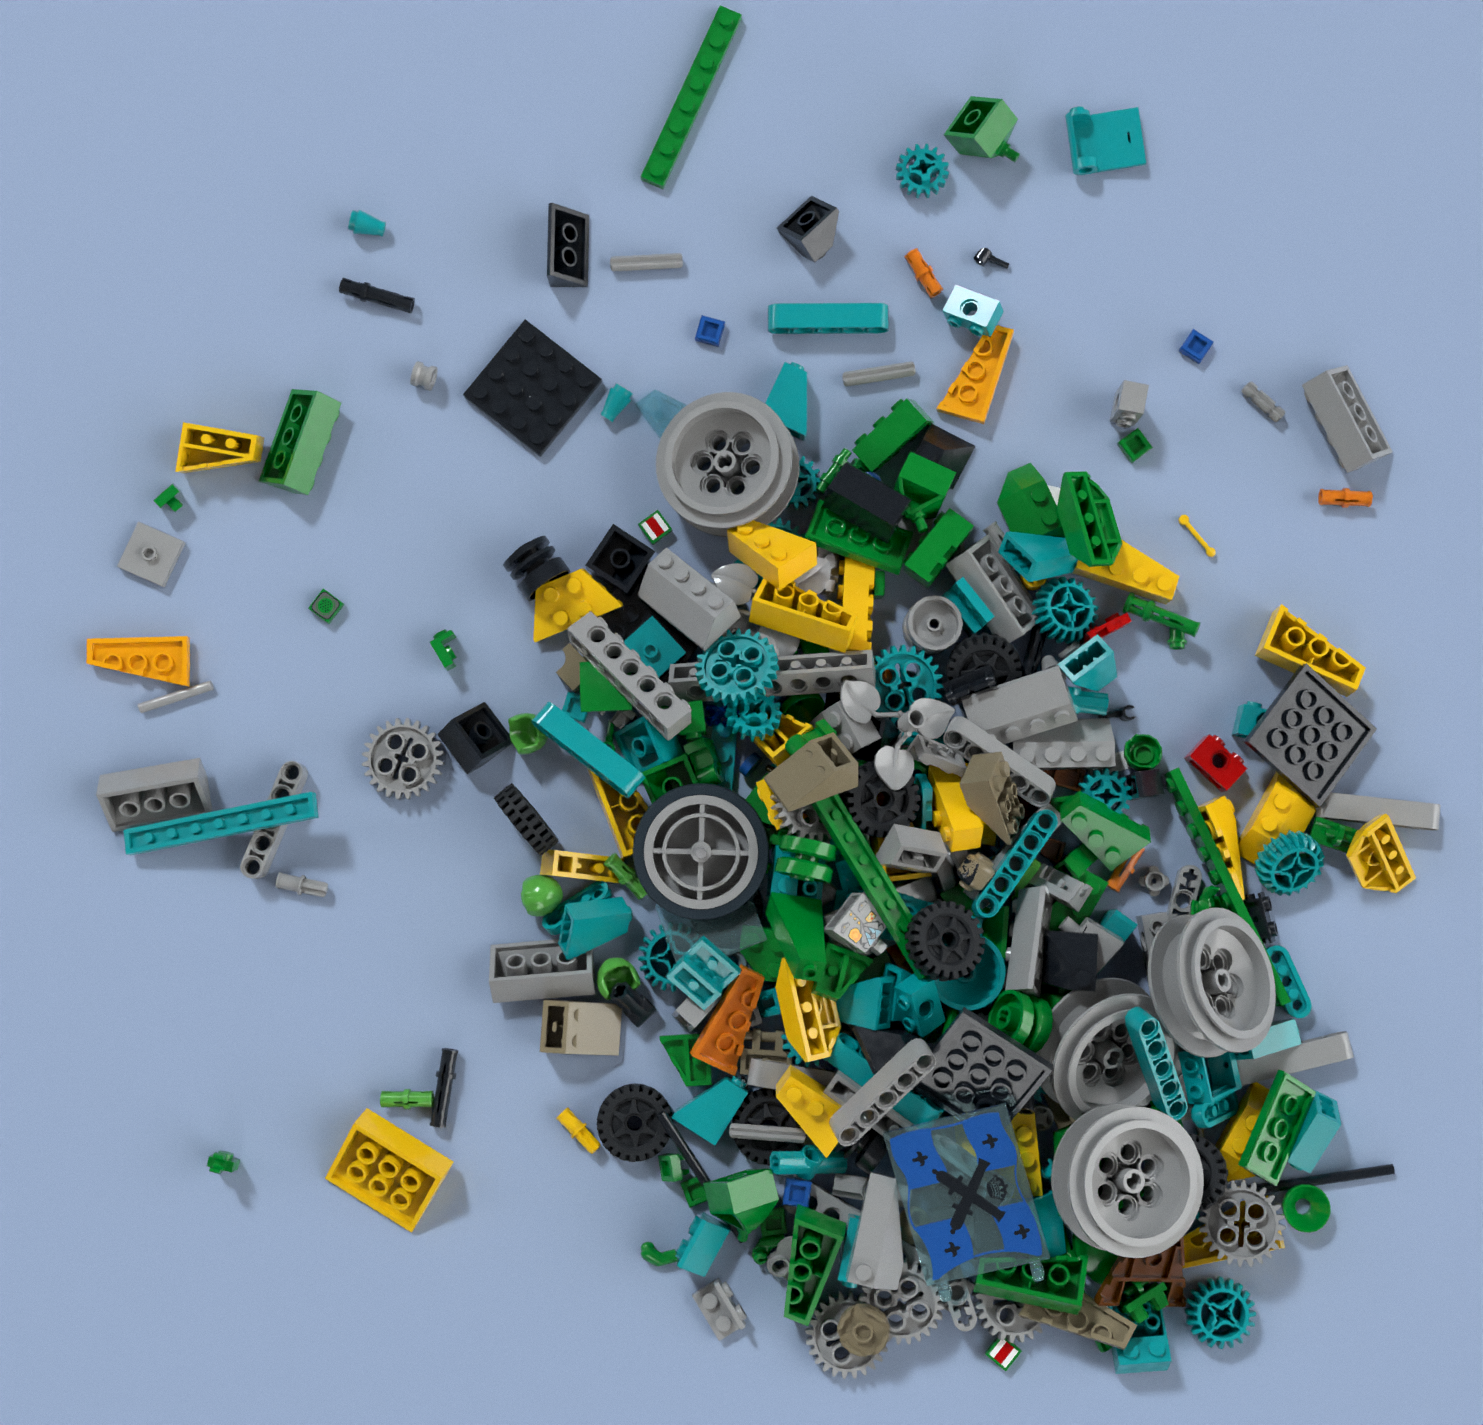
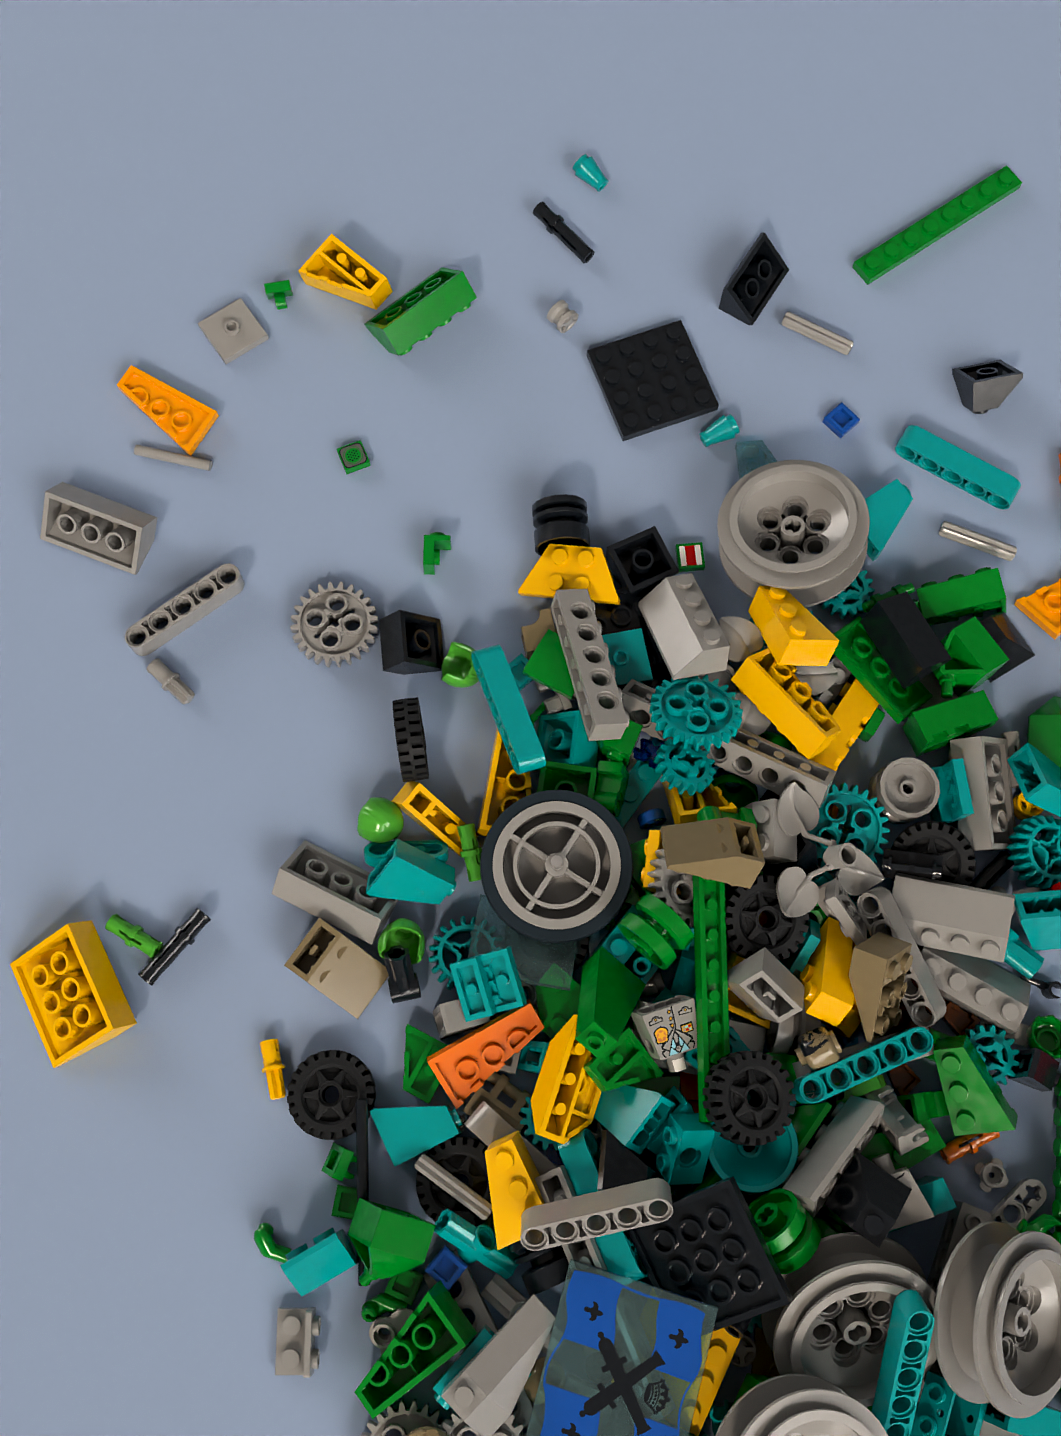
camera: 30 degrees right, 10 degrees down
(221, 823) = (137, 582): teal plate -> none

